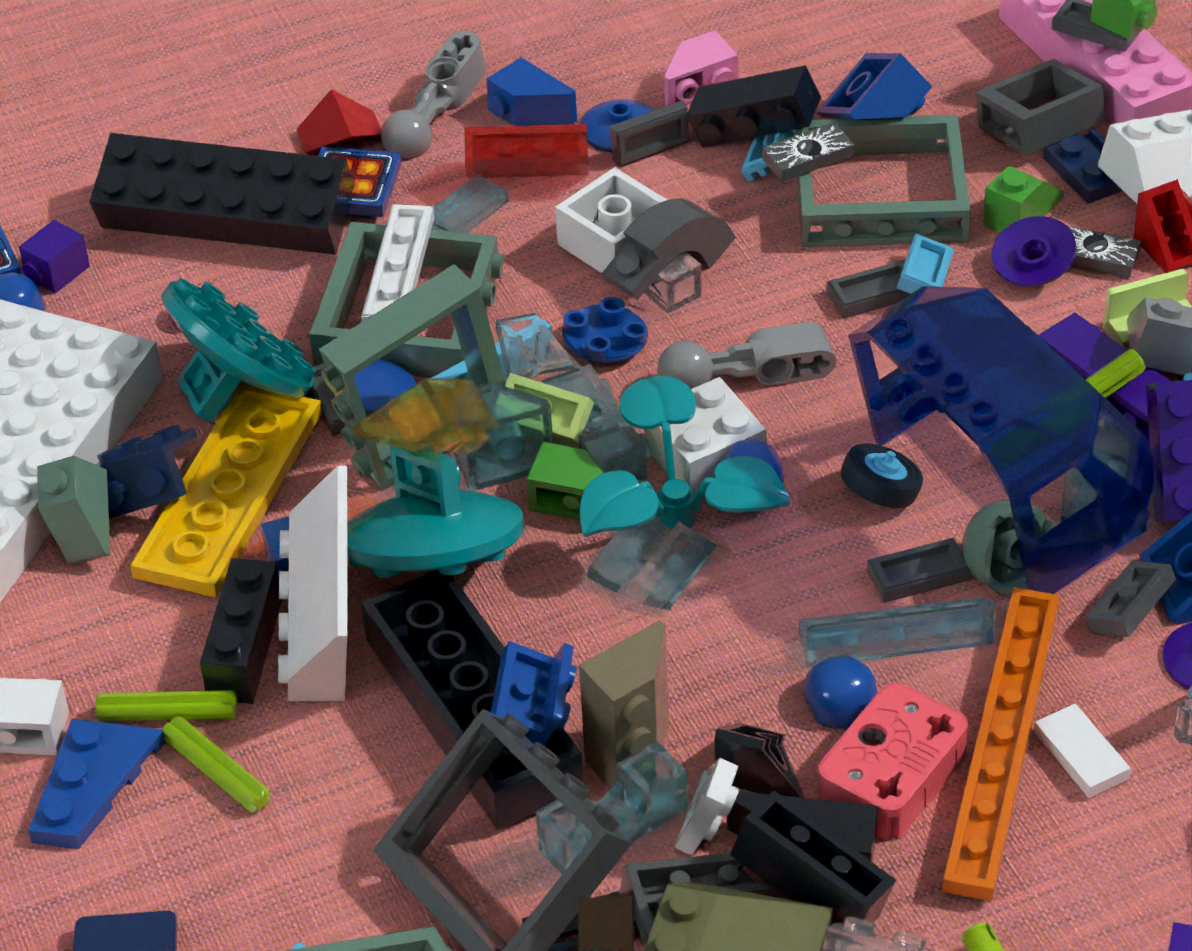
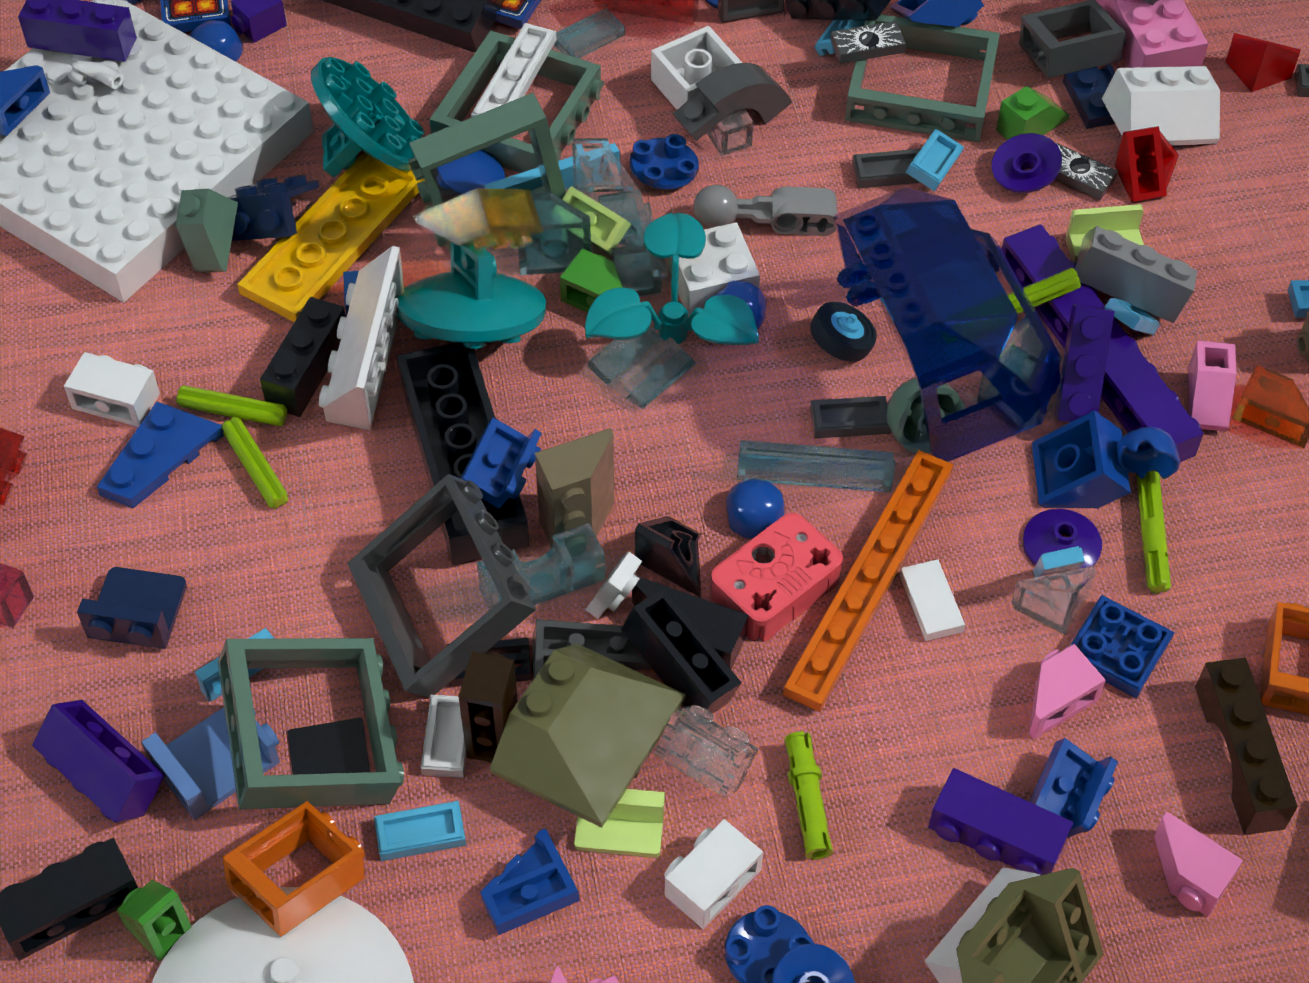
camera: 10 degrees right, 10 degrees up
(1130, 598) = (1010, 479): dark grey plate -> none

